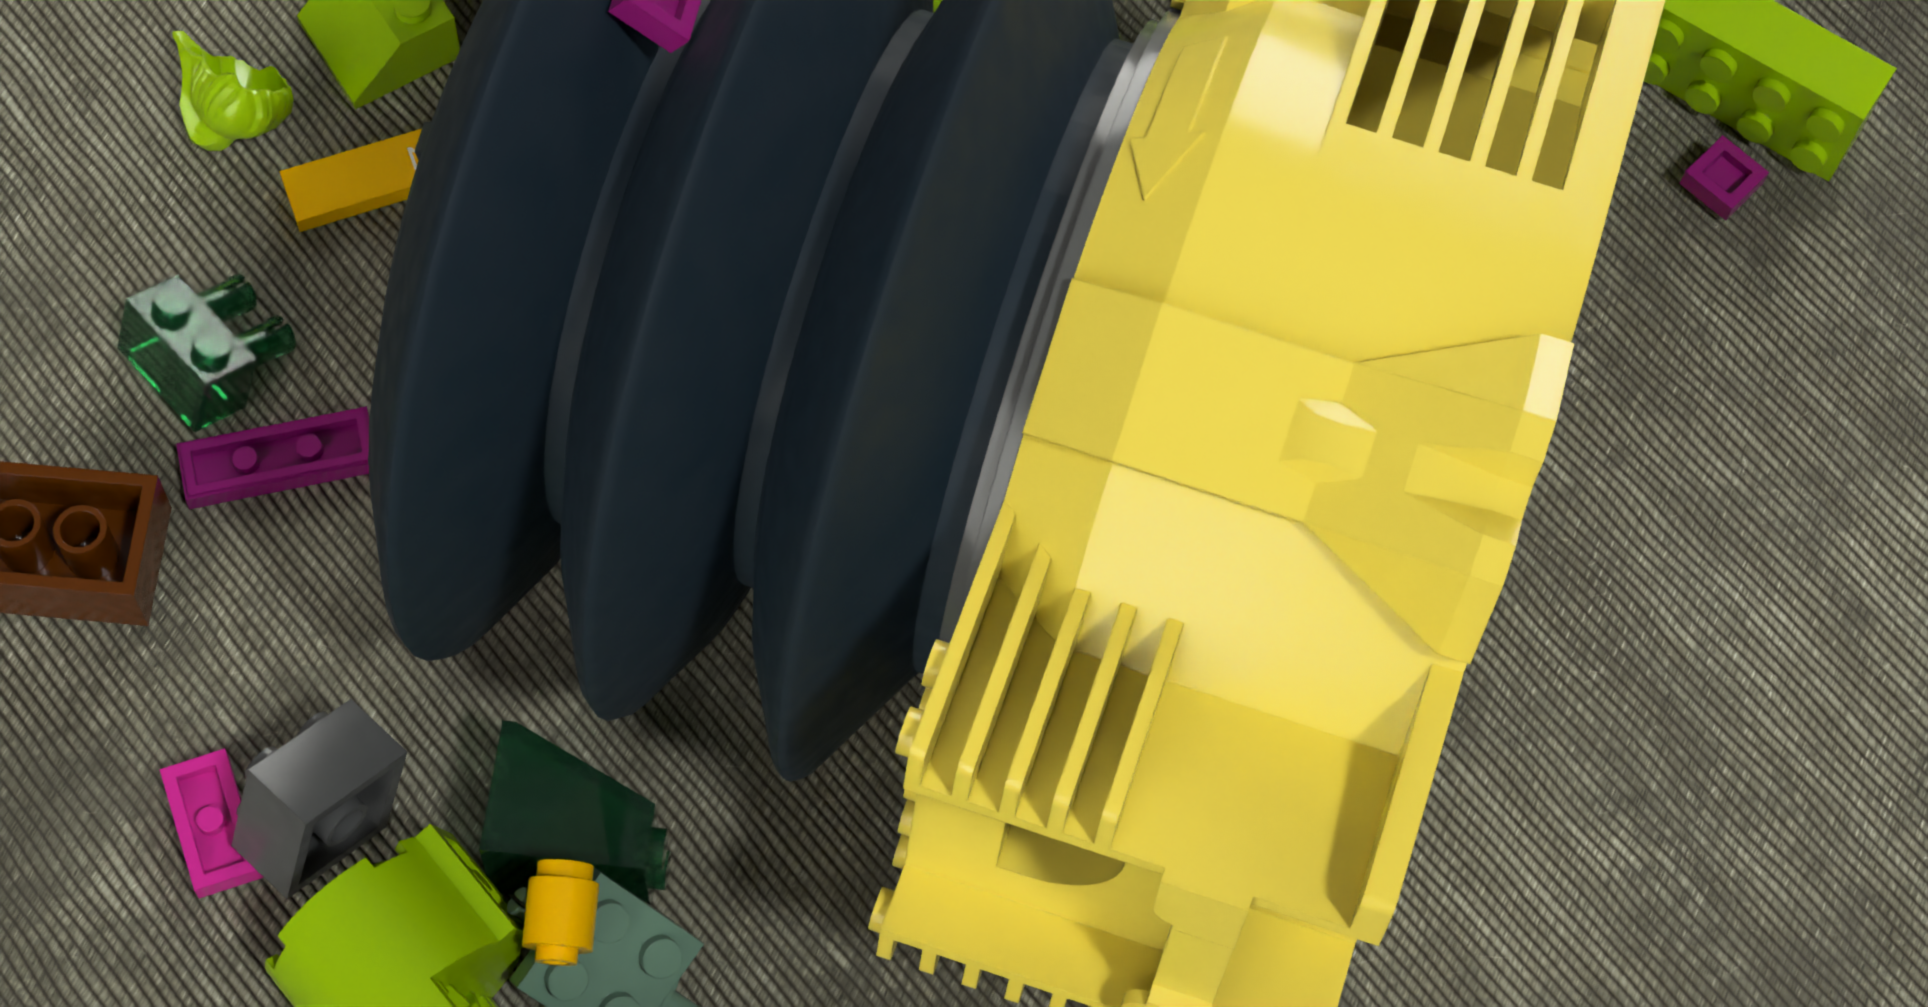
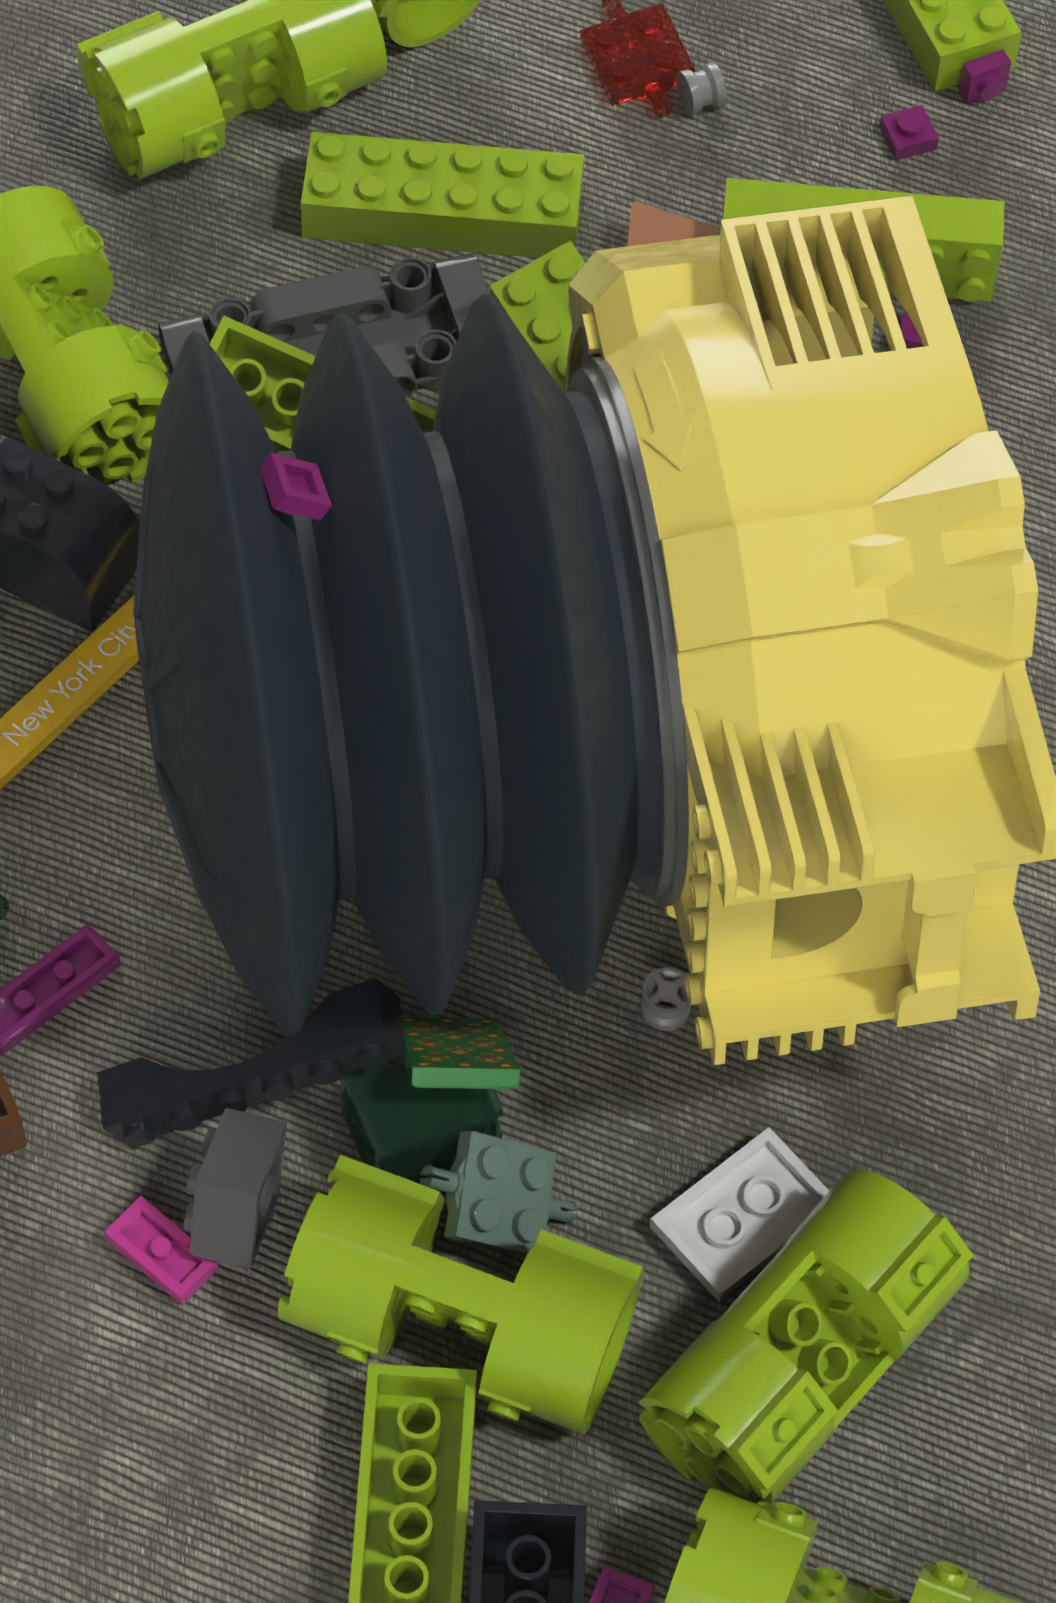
camera: 25 degrees left, 5 degrees down
(512, 684) = (344, 1034): none -> black arch
(560, 911) = (465, 1165): yellow brick -> none
(648, 771) = (458, 1054): none -> green tile

